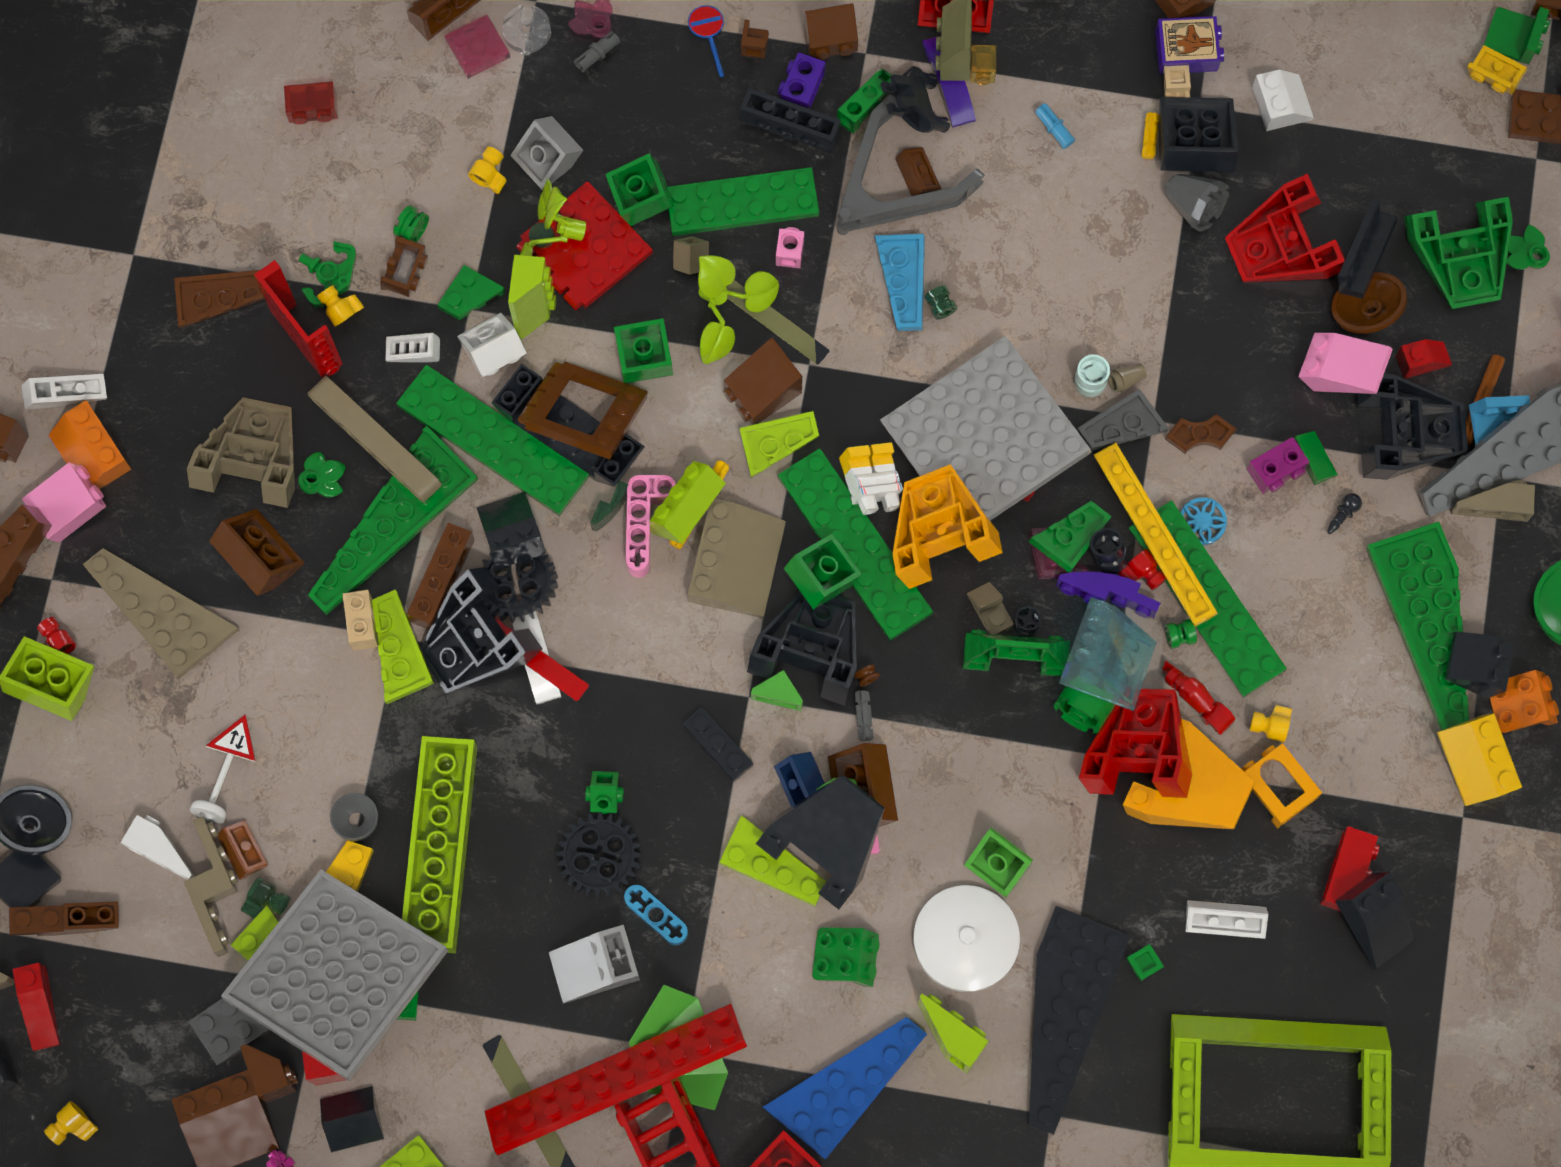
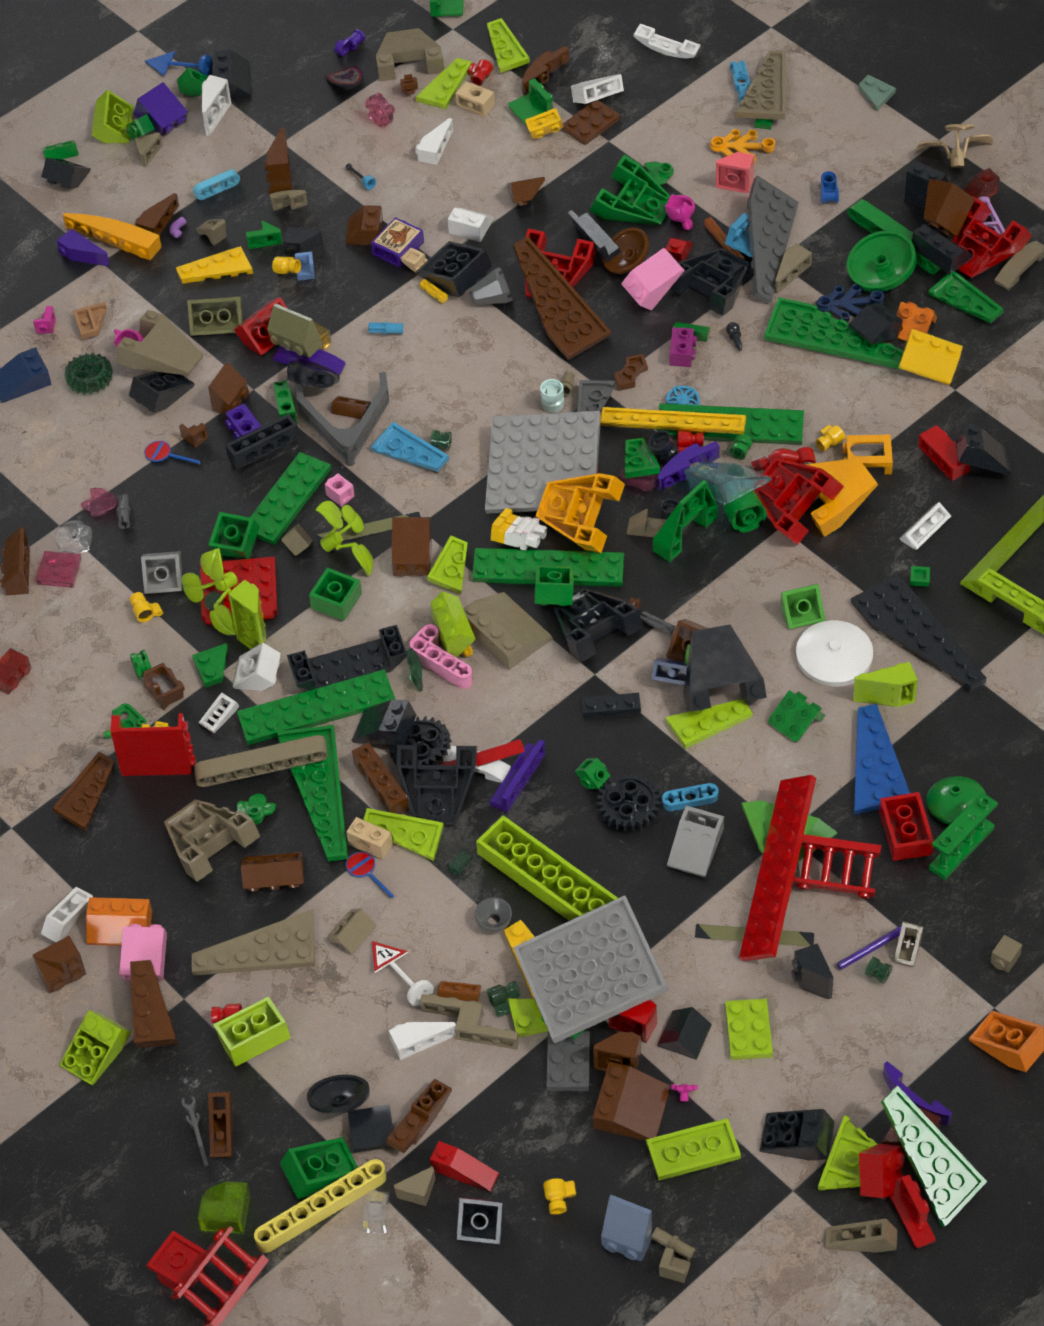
camera: 50 degrees left, 20 degrees down
(240, 685) = (352, 930): none -> dark tan panel
(329, 635) = (363, 864): none -> piece
(403, 732) = (459, 862): none -> clear green piece
(551, 714) = (518, 776): none -> dark purple fence
(612, 427) = (327, 659): reddish brown hinge -> none
(779, 692) = (608, 653): bright green slope -> none
(1223, 301) = (563, 312): none -> reddish brown wing
(1379, 121) = (524, 190): none -> reddish brown slope
(1485, 317) = (680, 210): none -> dark pink hair
(1497, 603) = (828, 303): none -> dark blue plant

